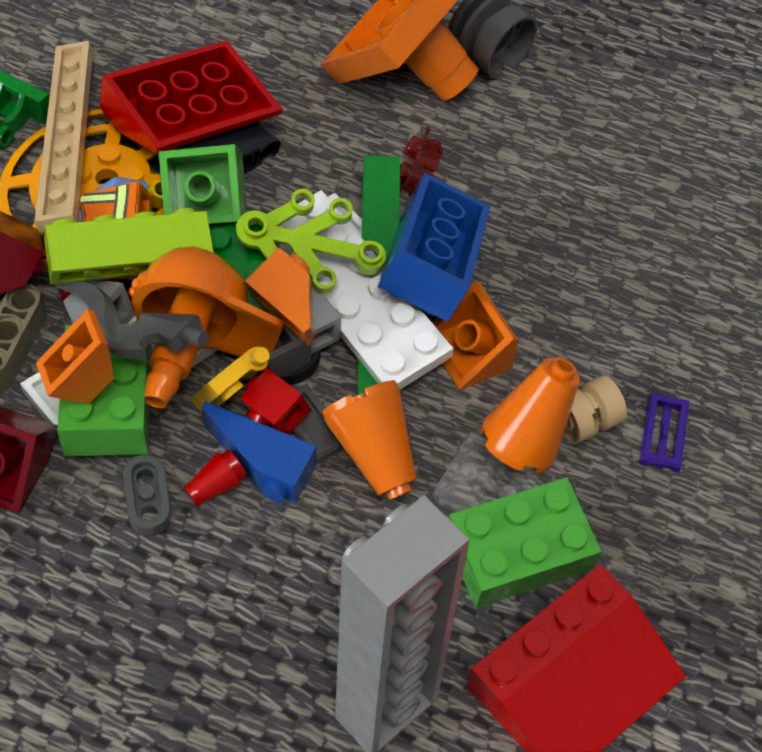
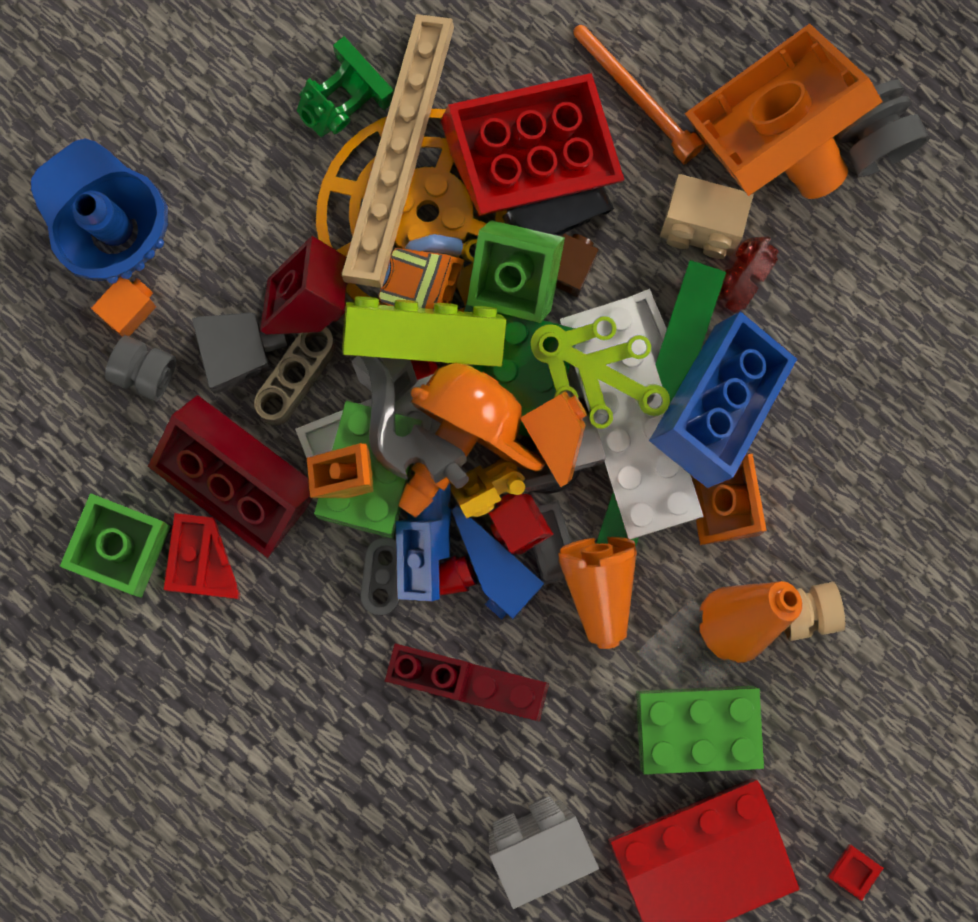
camera: 20 degrees right, 25 degrees up
(181, 445) = (420, 547): none -> blue plate
(260, 187) = (575, 263): none -> reddish brown brick
(260, 569) = (467, 682): none -> dark red slope
(330, 86) = (686, 144): none -> orange piece
(365, 120) = (706, 216): none -> tan brick
(660, 459) = (860, 676): dark purple tile -> none
(734, 642) = (855, 872): none -> red tile

